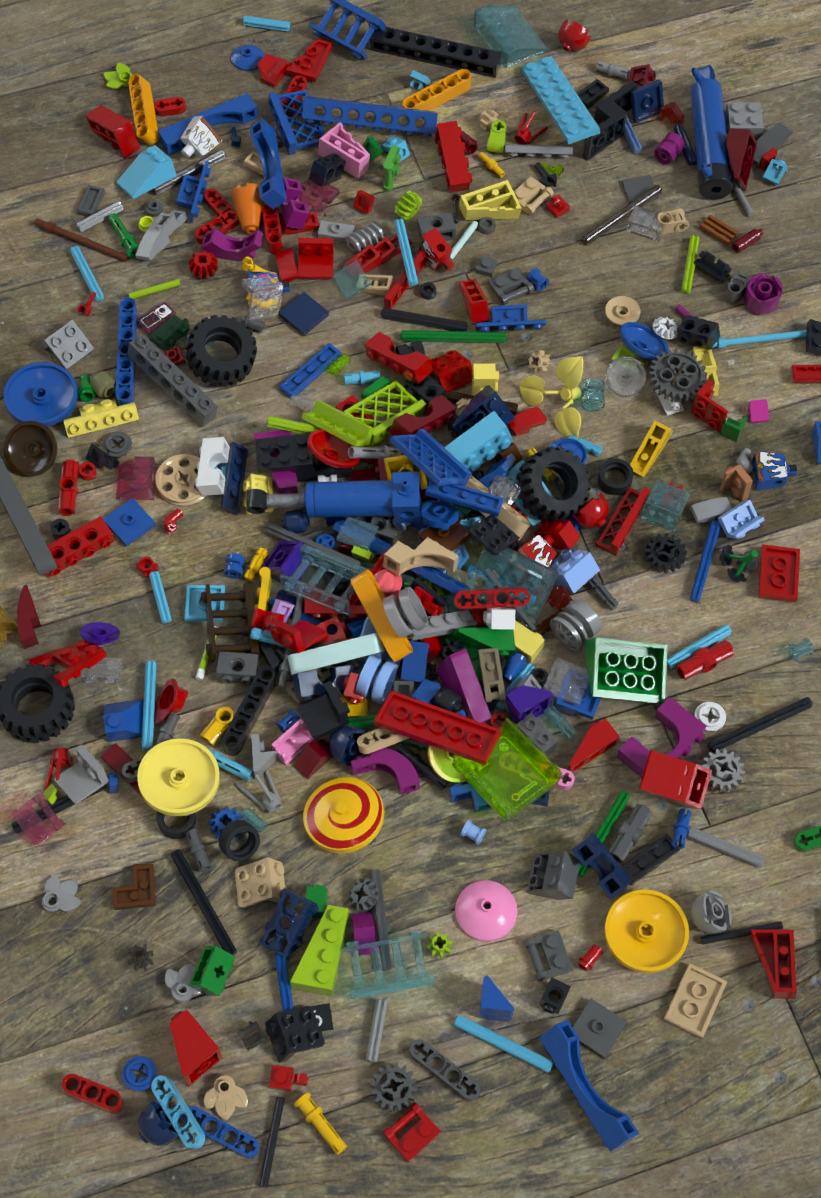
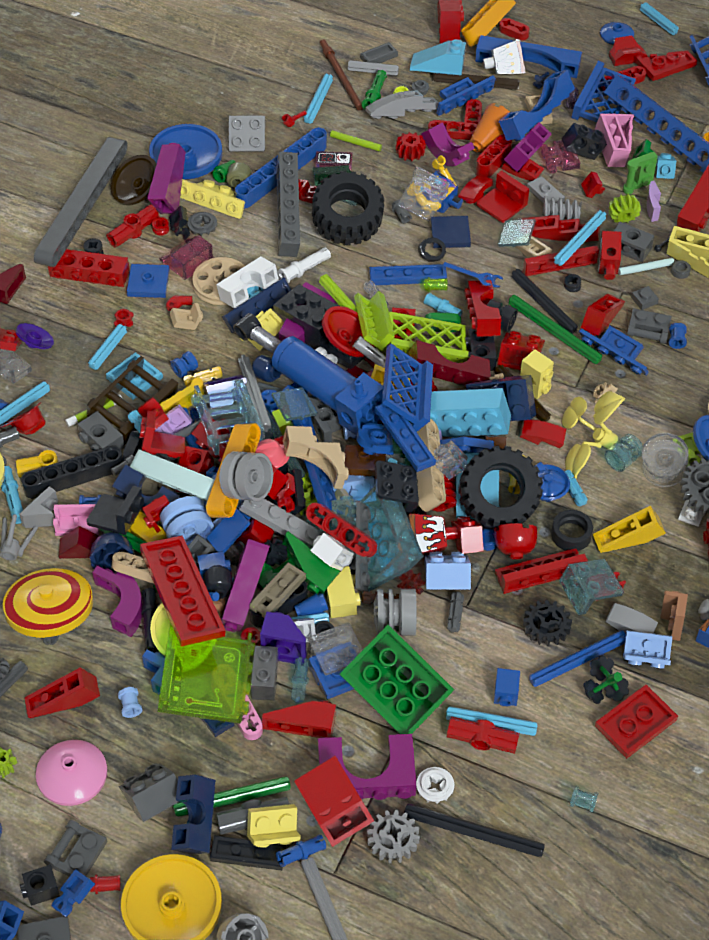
camera: 45 degrees right, 10 degrees down
(60, 426) = (167, 179): none -> magenta slope
(194, 528) = (186, 318): none -> tan bracket
(229, 427) = (297, 269): none -> white pin
(299, 341) = (425, 255): none -> black piece
(361, 335) = (482, 277): none -> blue flag
(421, 188) = (653, 199): none -> lavender slope
(425, 867) = (63, 694): none -> red slope
(580, 977) = (73, 891): none -> blue plate
(652, 829) = (273, 825): none -> light yellow bracket
(687, 617) = (507, 687): none -> blue brick

